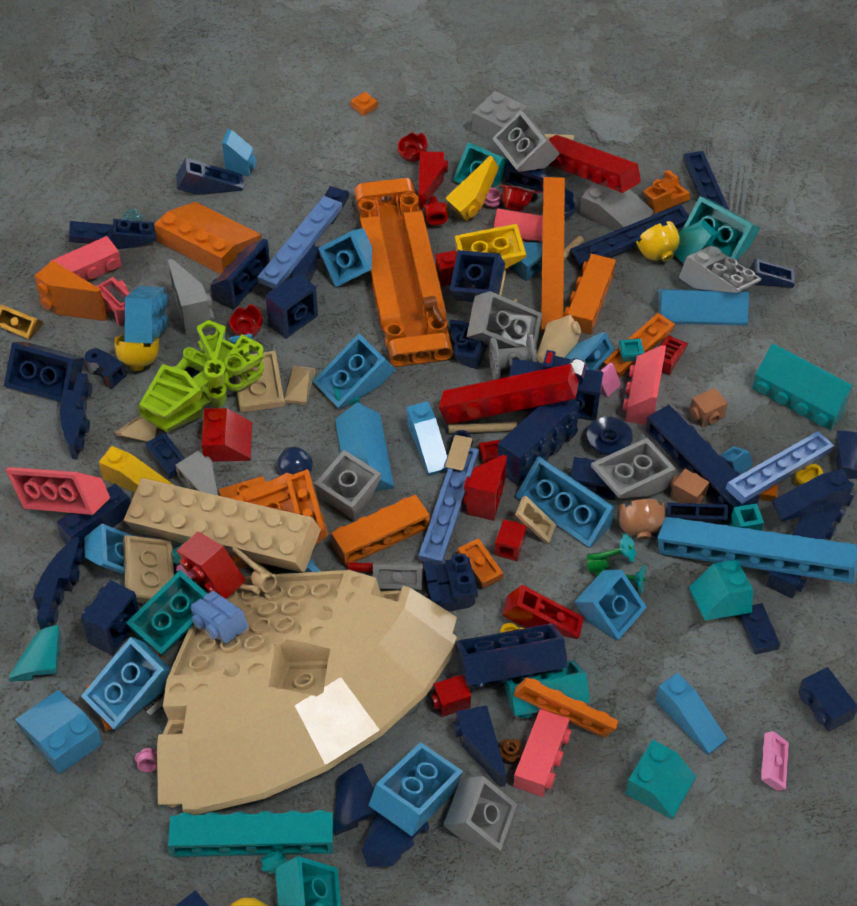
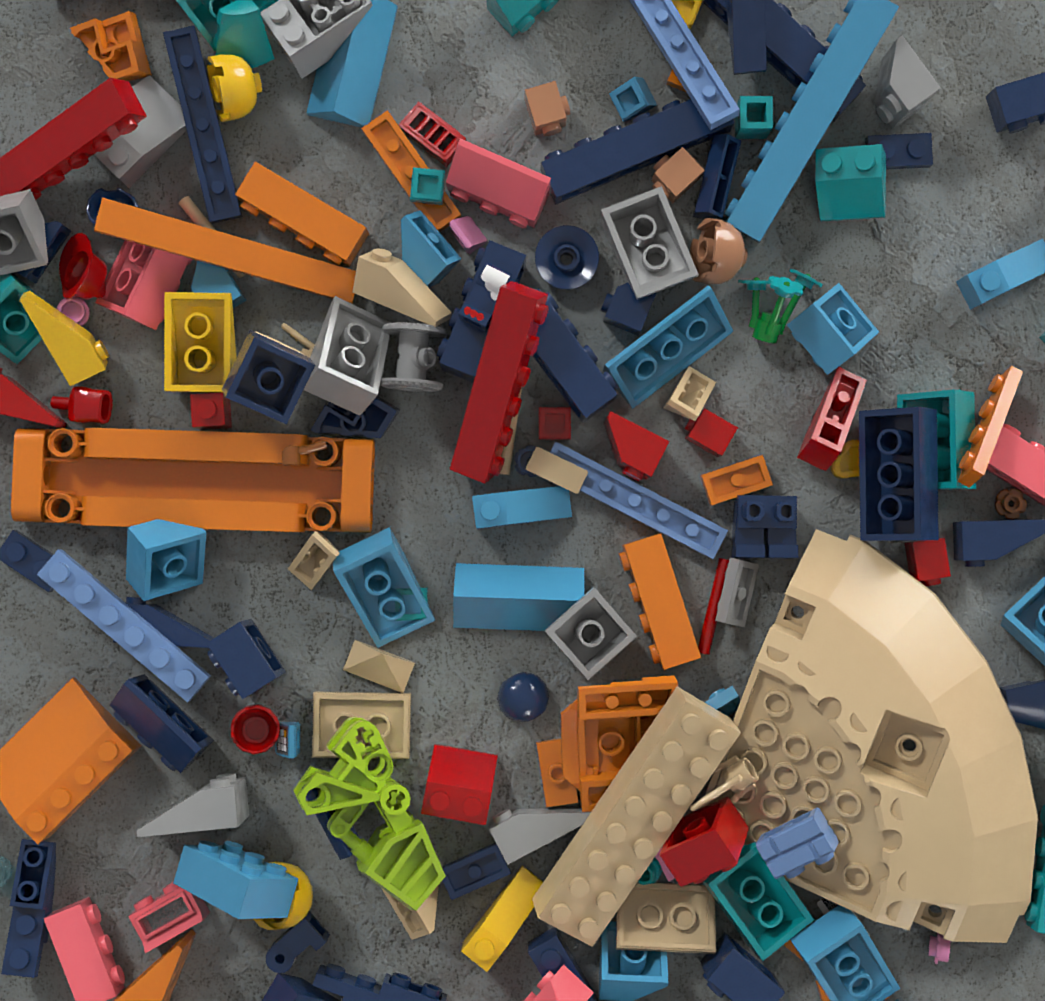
camera: 85 degrees left, 35 degrees up
(371, 332) = (314, 559): none -> tan slope
(804, 607) = (902, 84): none -> light grey slope

